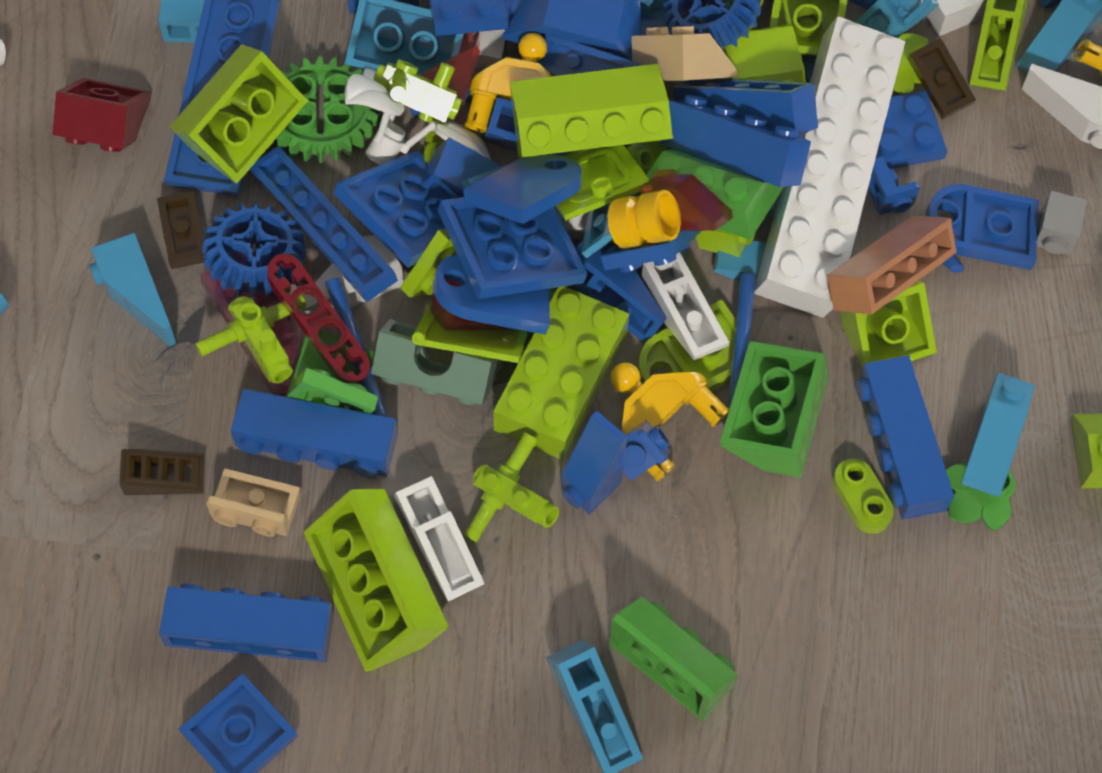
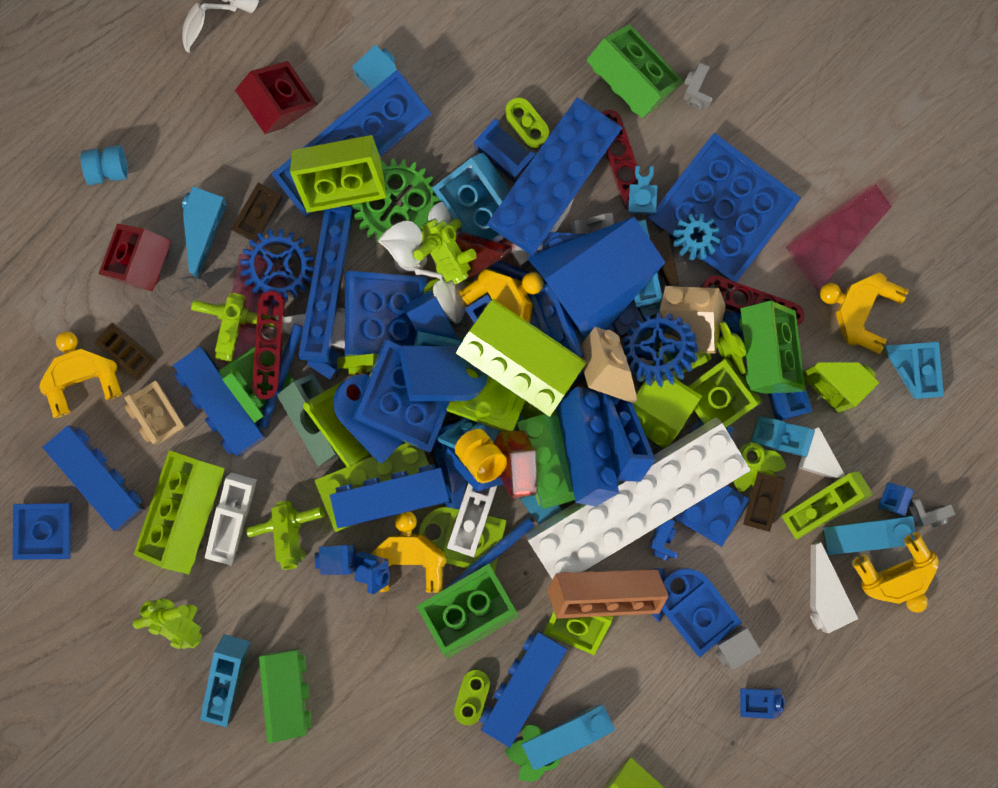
camera: 45 degrees right, 20 degrees up
(86, 370) = (135, 257): none -> dark red slope
(122, 529) = (75, 368): none -> yellow connector
(396, 305) = (327, 369): none -> blue bracket
(475, 689) = (170, 622): none -> lime piece
(589, 349) = (389, 497): none -> blue brick

